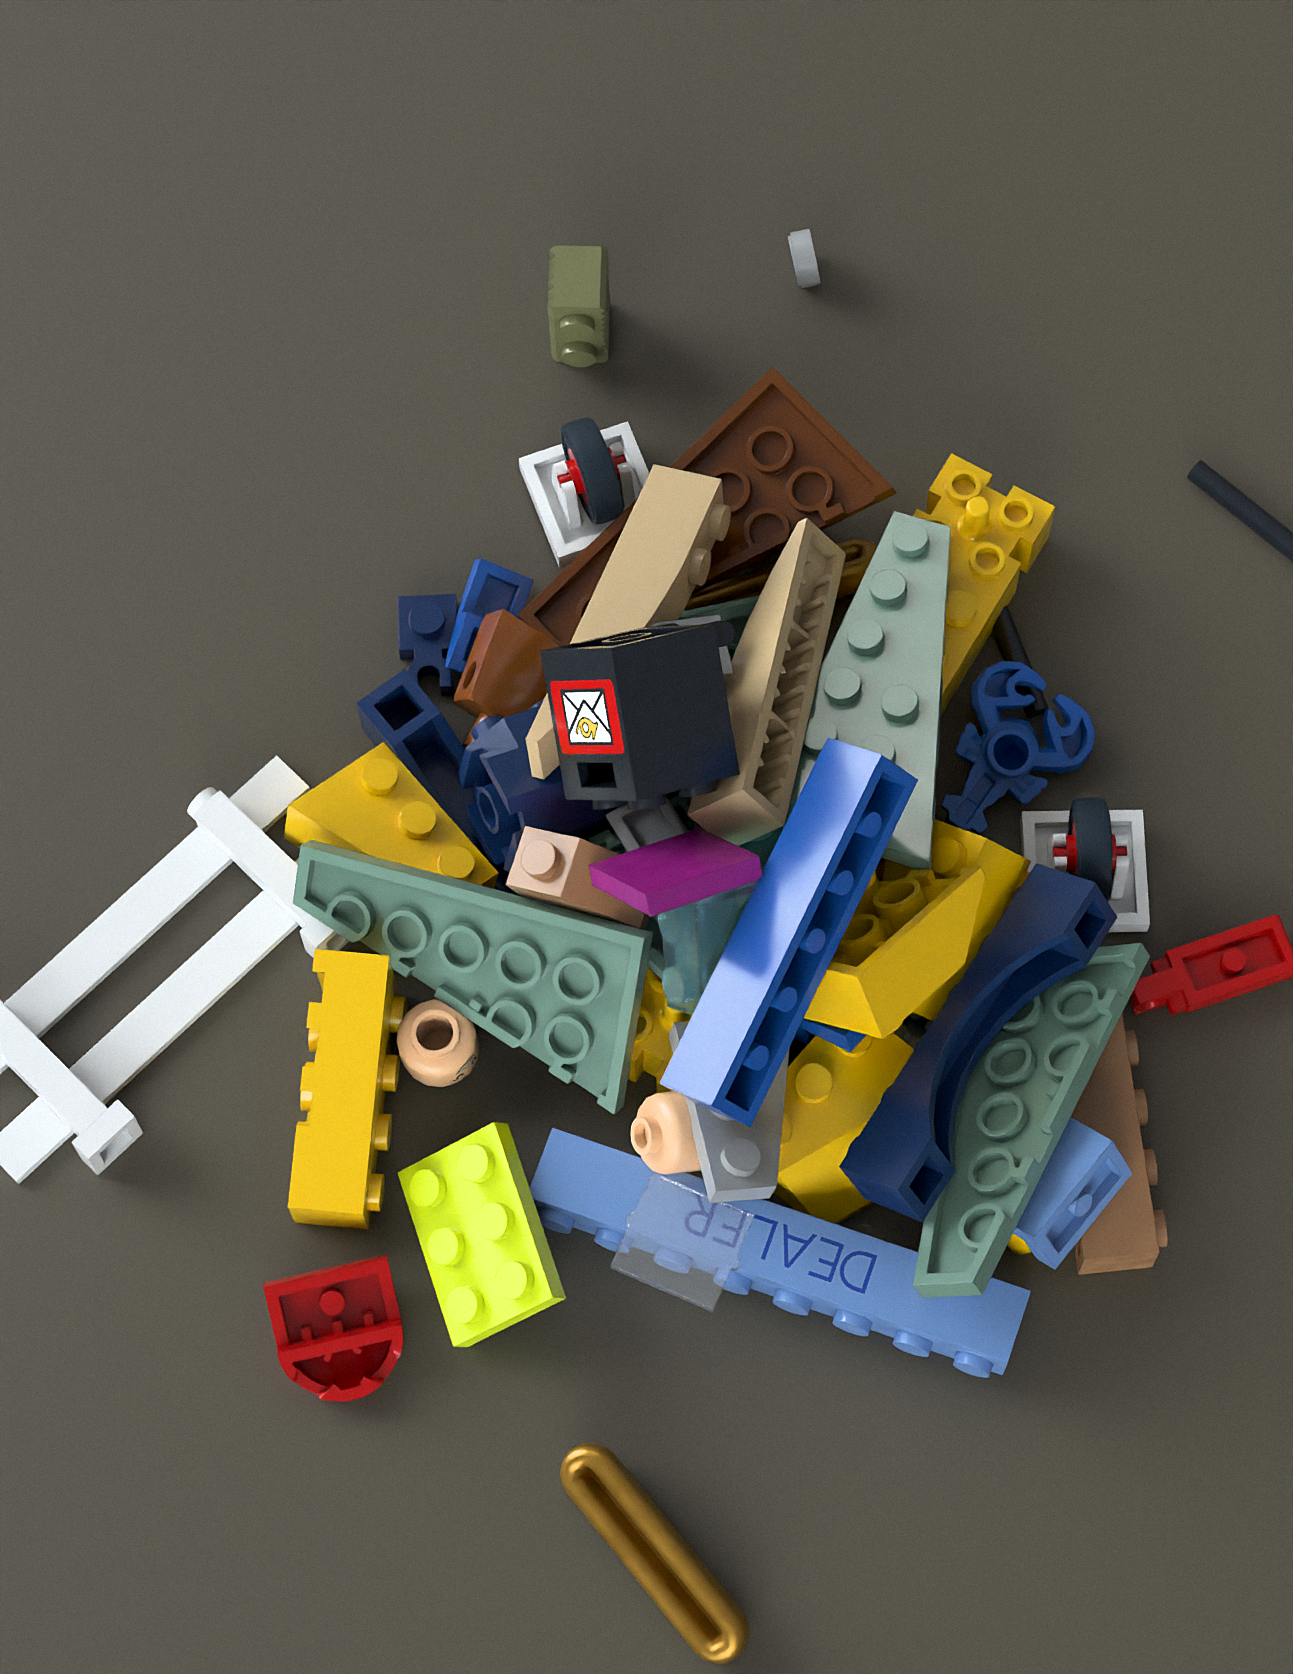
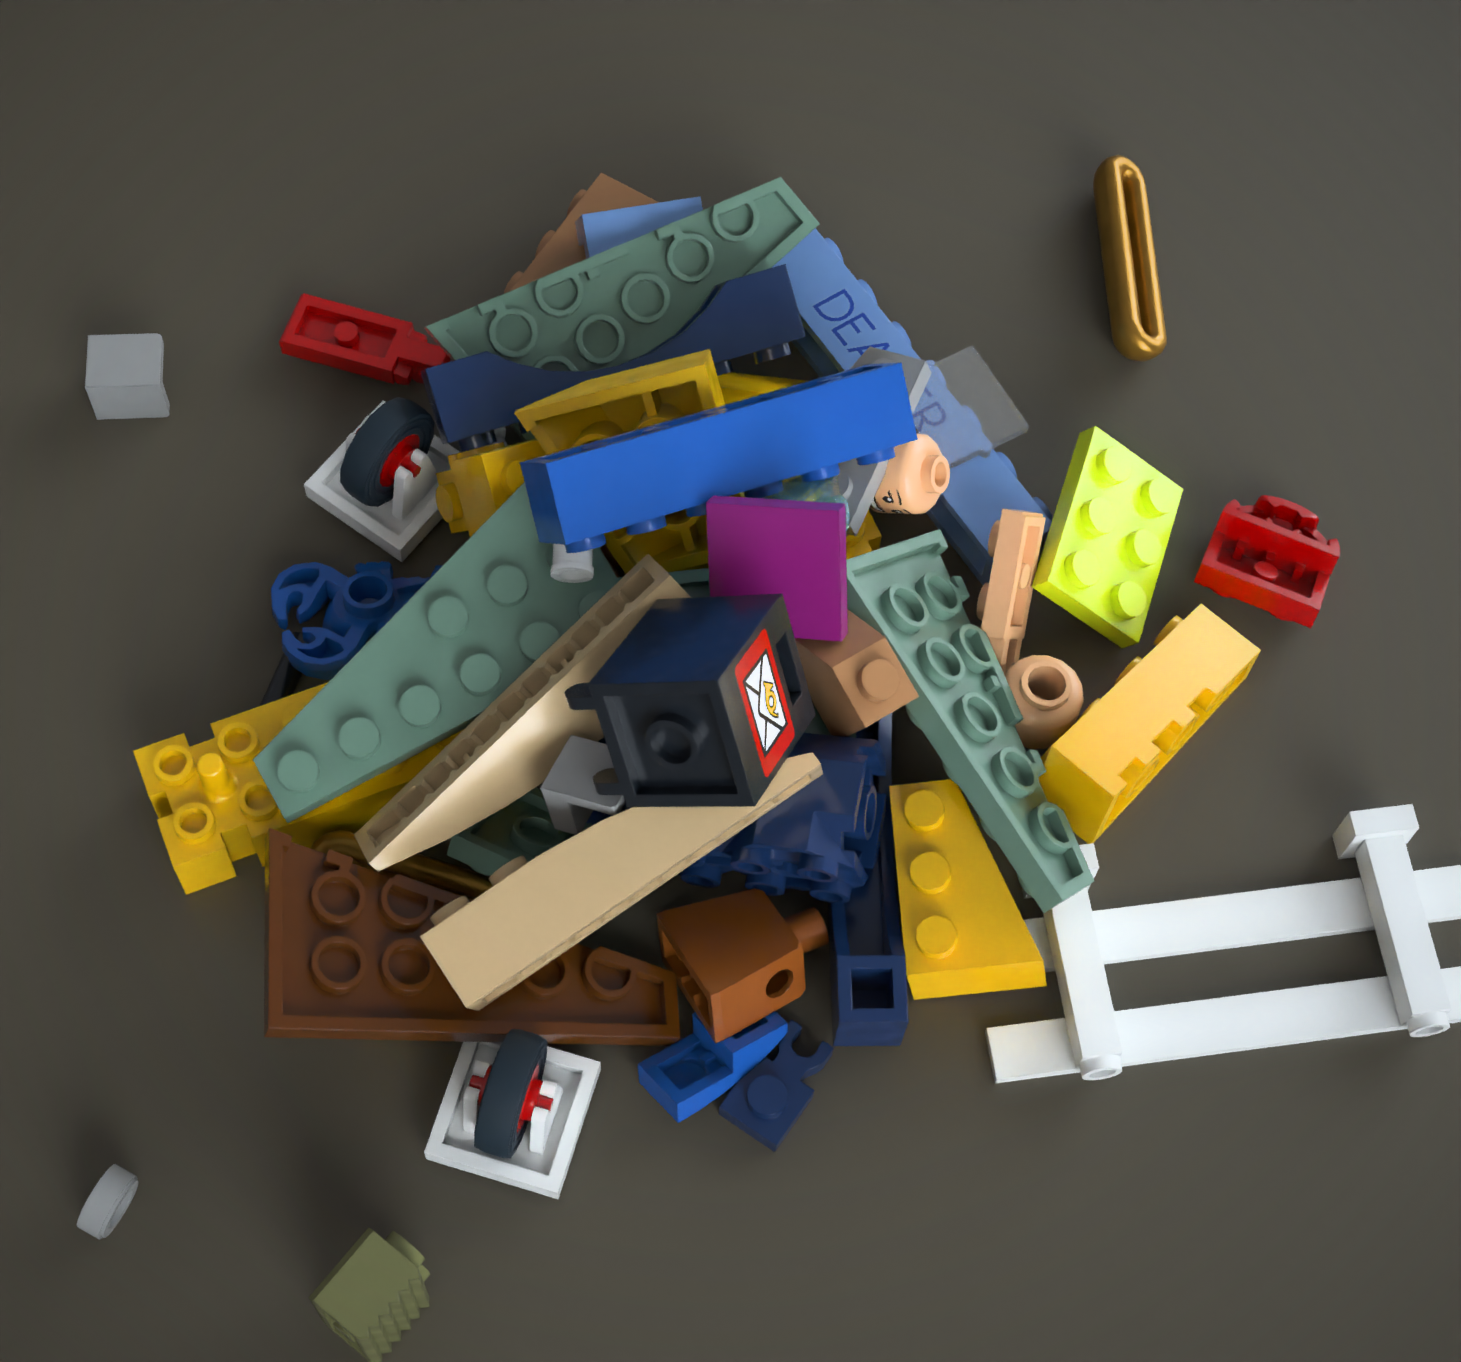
camera: 150 degrees left, 5 degrees down
(523, 1104) = (1007, 597): none -> light nougat hinge

